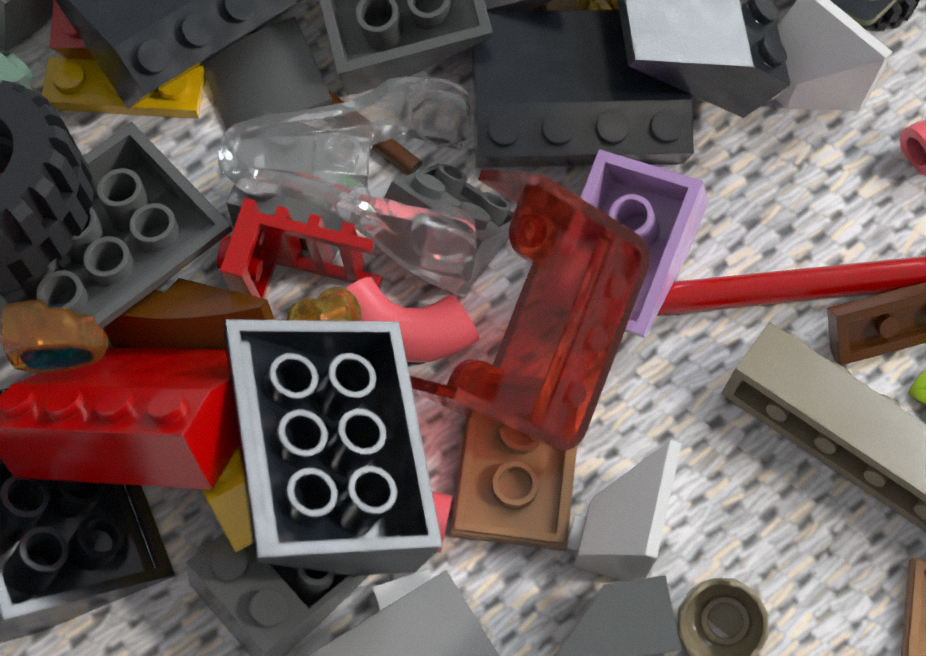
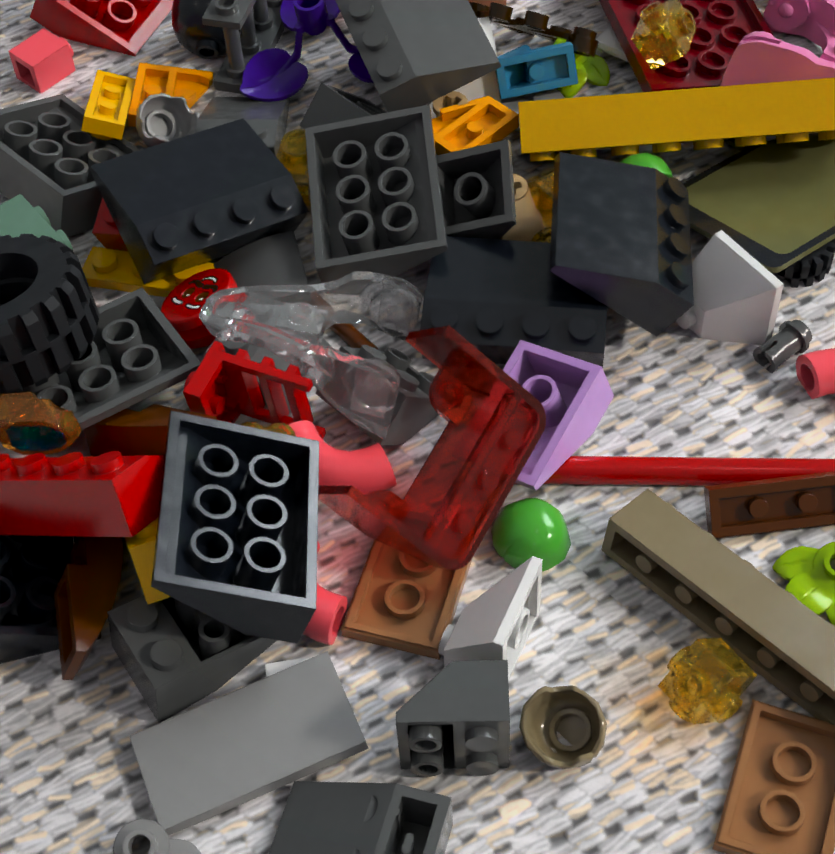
camera: 15 degrees right, 15 degrees down
(153, 552) = (85, 597): none -> reddish brown slope
(193, 130) = (186, 300): none -> red head
(643, 386) = (529, 530): none -> bright green hair
(867, 550) = (706, 681): none -> clear yellow brick
(890, 102) = (790, 339): none -> dark grey pin

